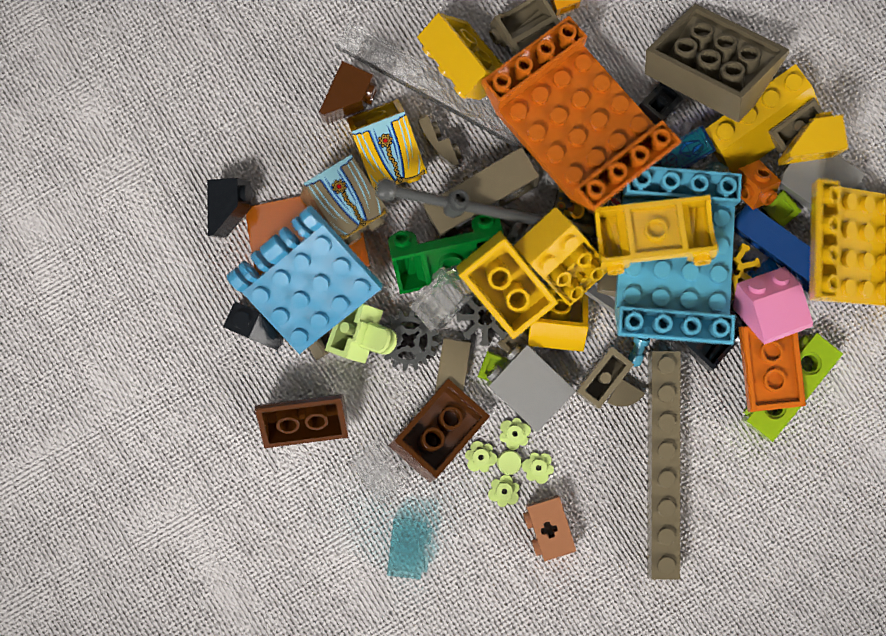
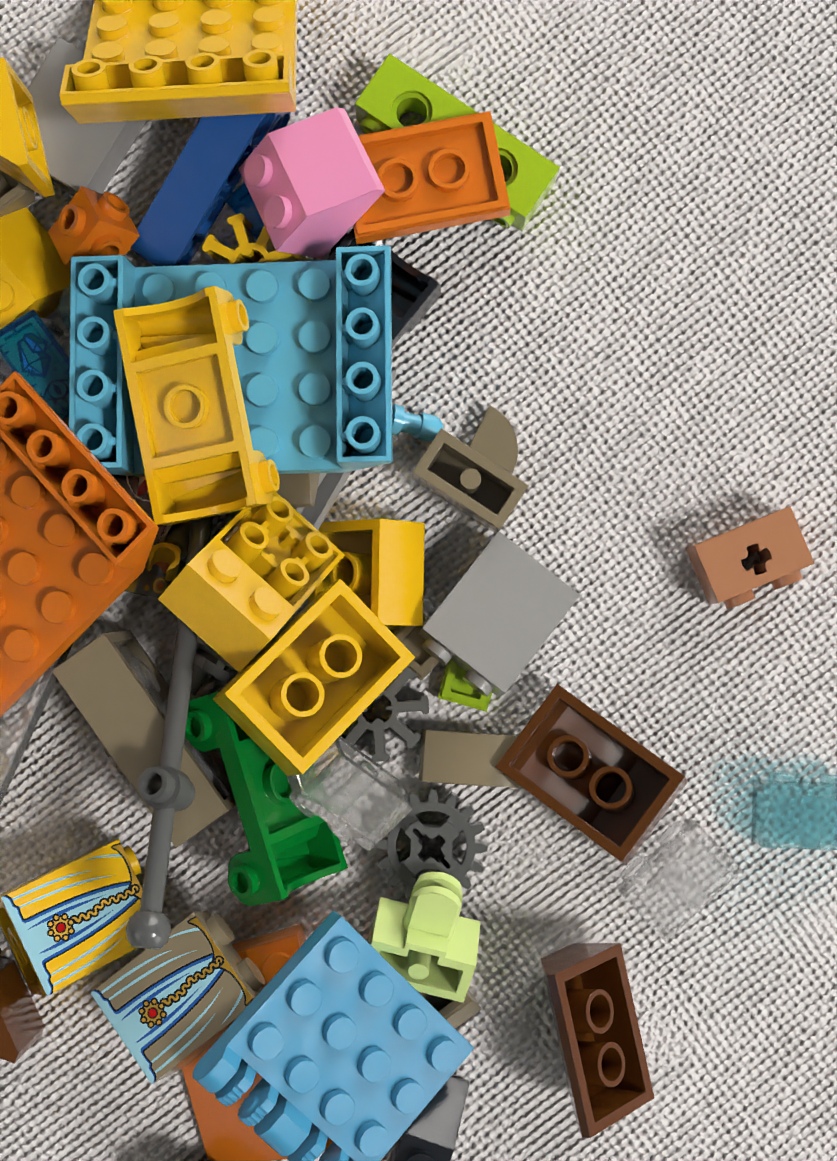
camera: 95 degrees left, 0 degrees up
(444, 149) = (70, 812): dark tan slope -> none
(509, 462) = (635, 640): yellowish green plant -> none
(663, 466) = (619, 360): dark tan brick -> none
(782, 209) = (135, 184): lime tile -> none

